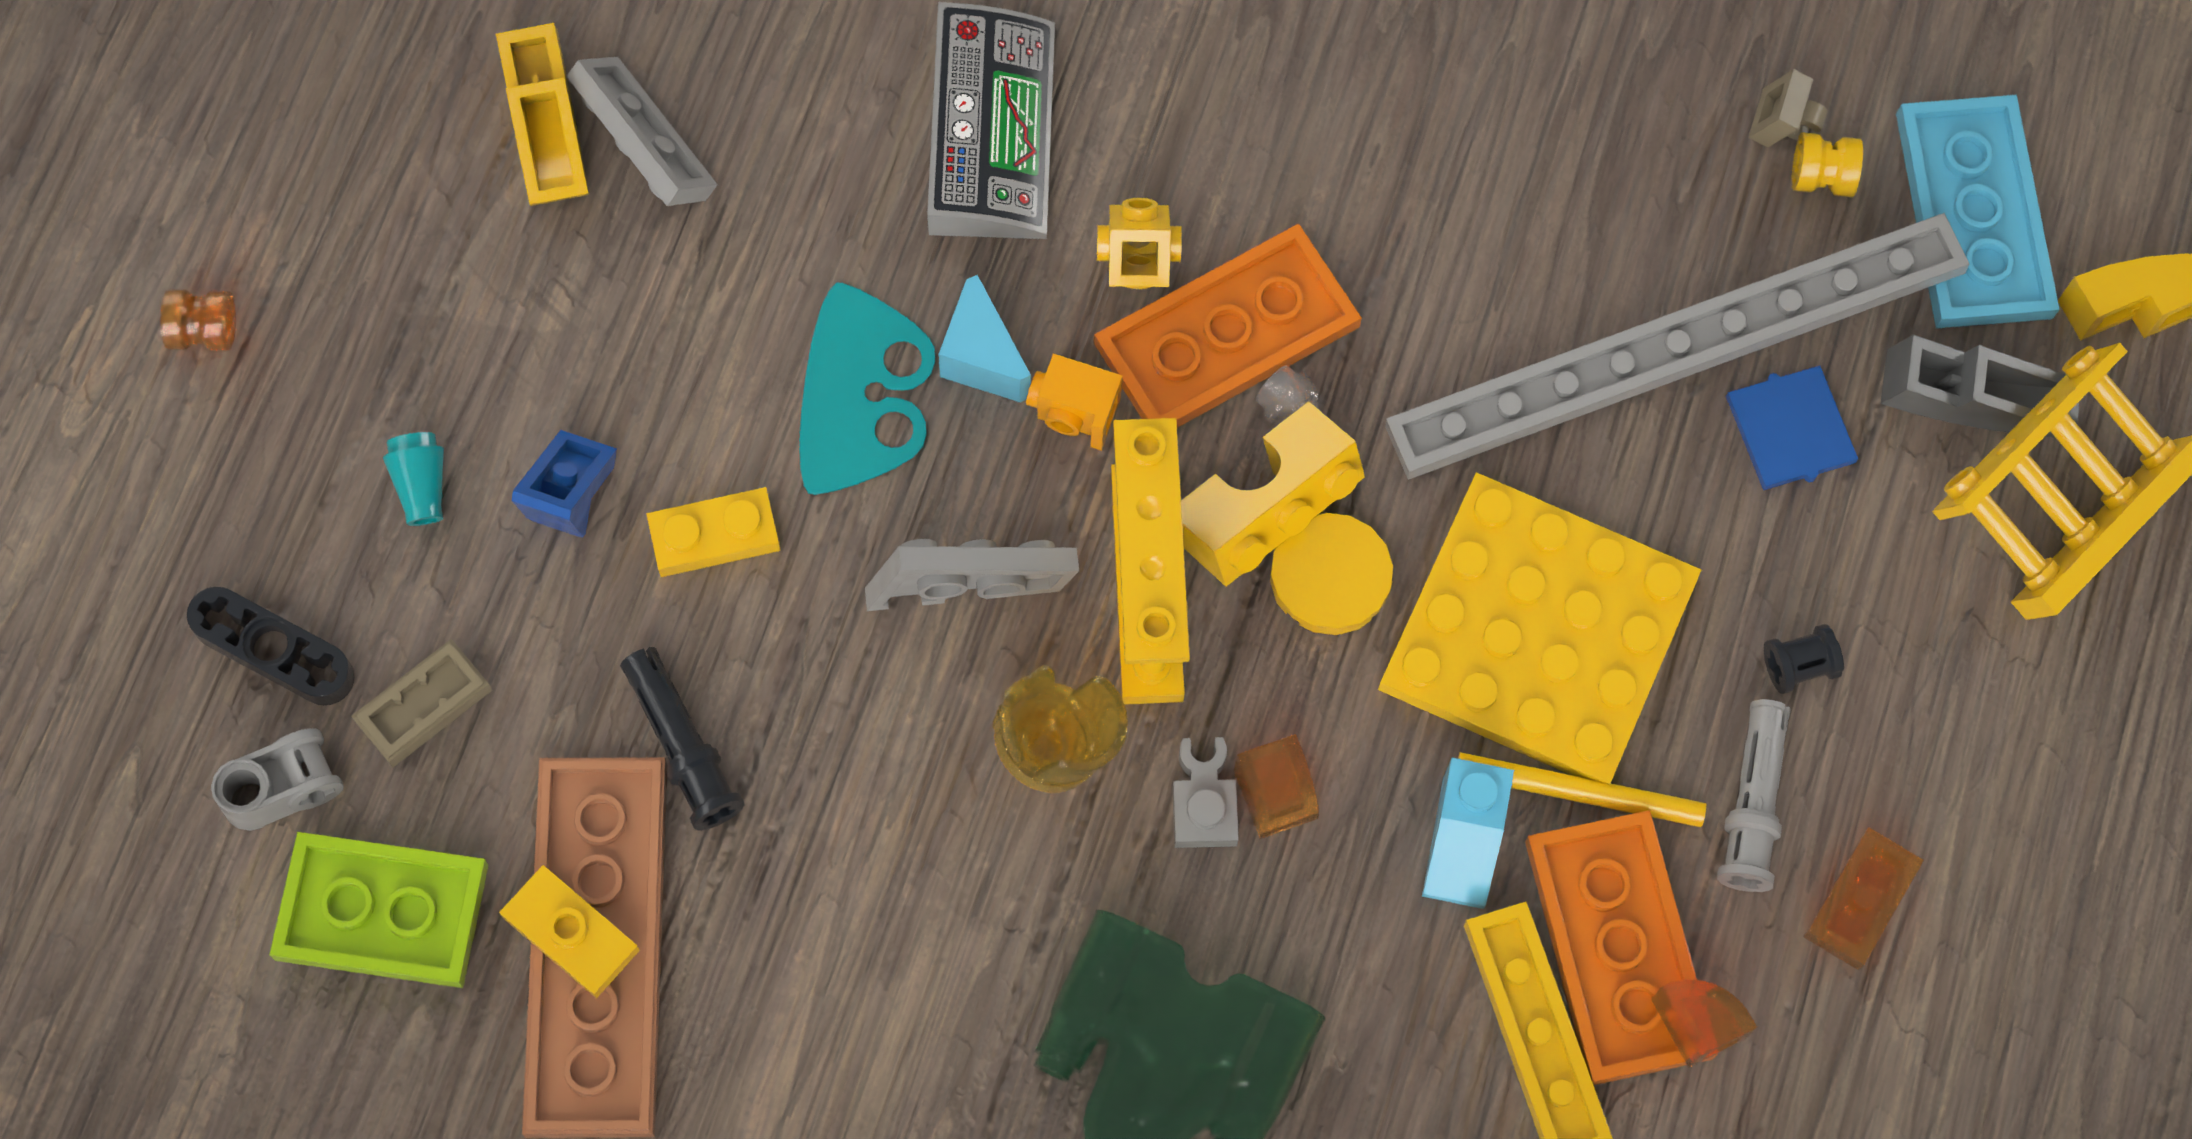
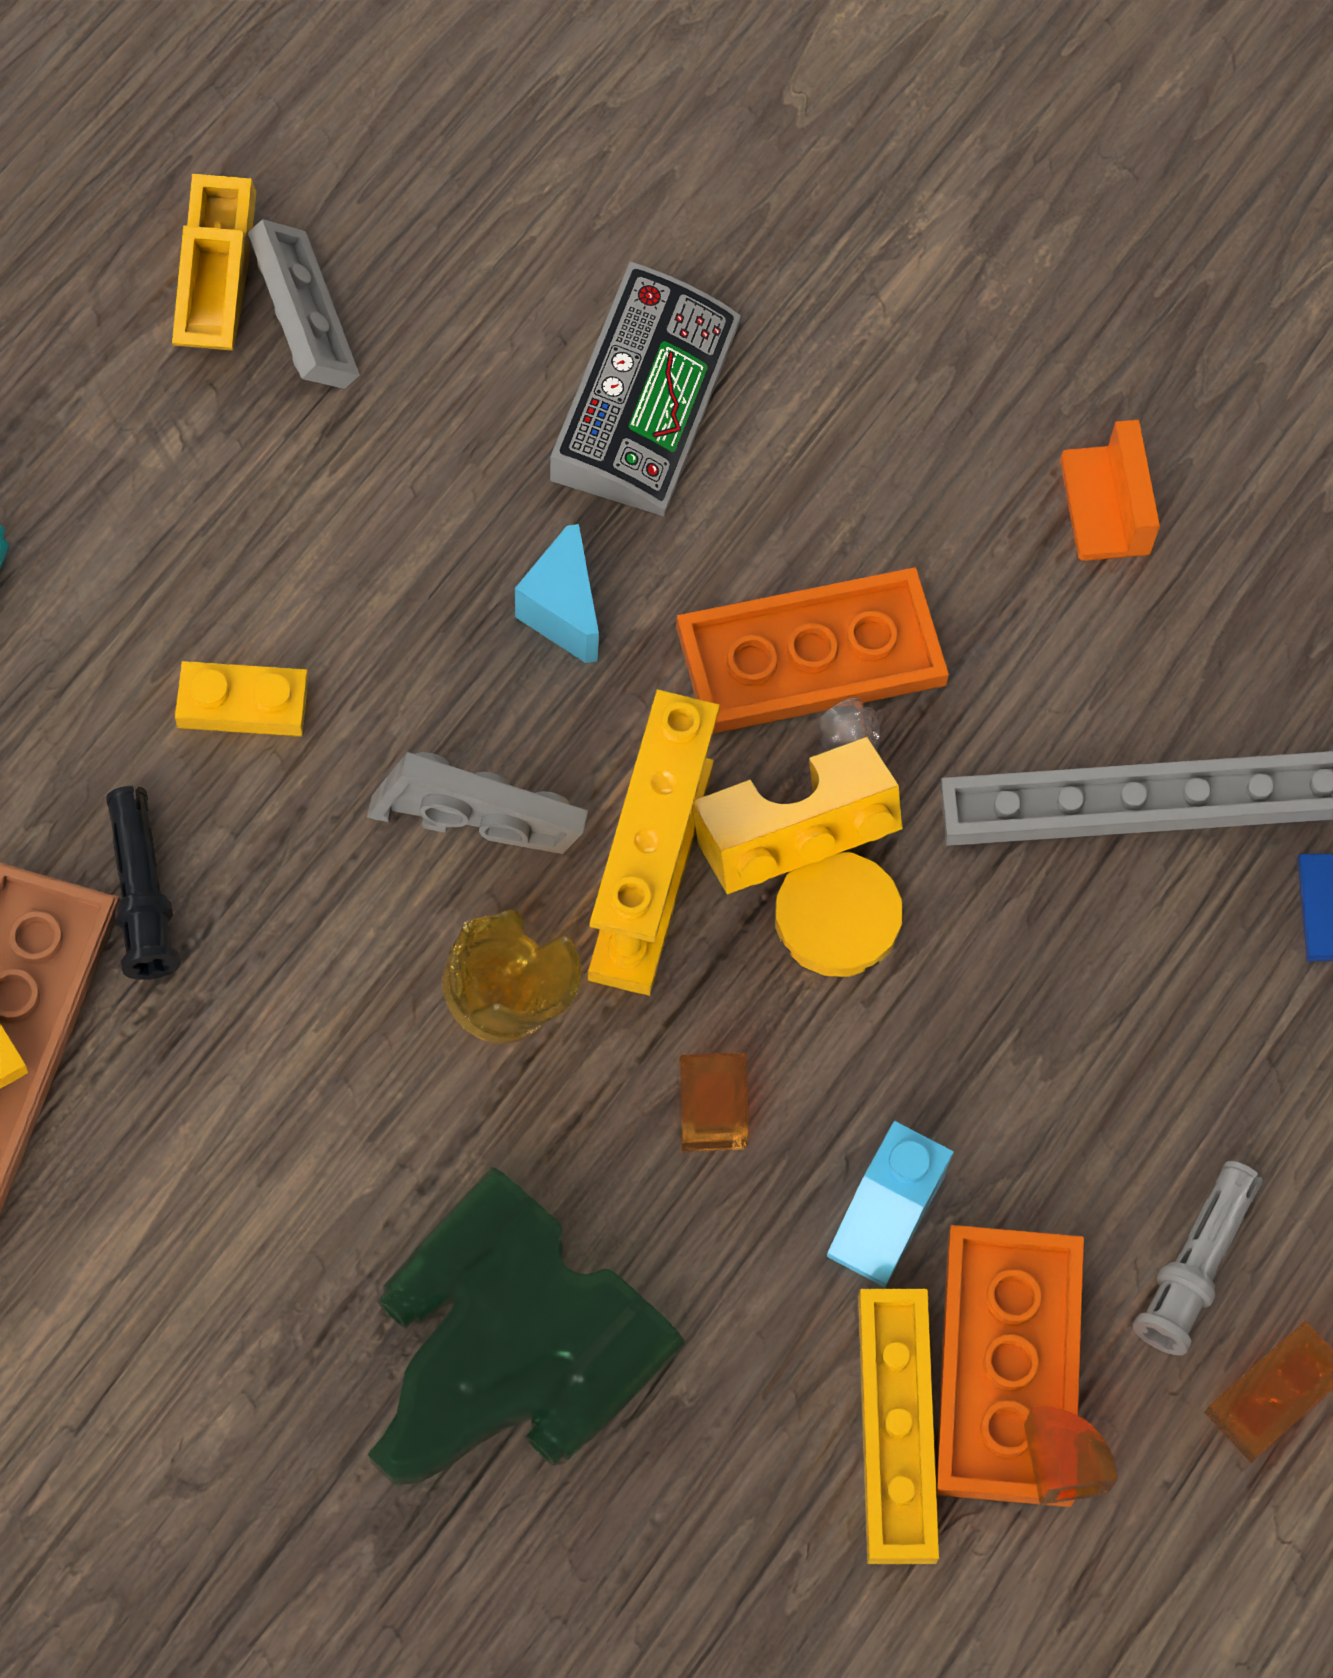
camera: 15 degrees right, 5 degrees down
(563, 482) = (109, 607): blue slope -> none
(836, 416) = (401, 623): teal piece -> none
(1076, 398) = (636, 666): light orange brick -> none
(1139, 244) = (740, 559): yellow brick -> none
(1204, 805) = (636, 1100): light grey plate -> none
(1453, 100) = (1111, 496): none -> orange panel
(1540, 630) = (1032, 1031): yellow plate -> none
(1599, 793) = (1041, 1207): yellow bar -> none
(1803, 658) = (1292, 1135): black bush -> none

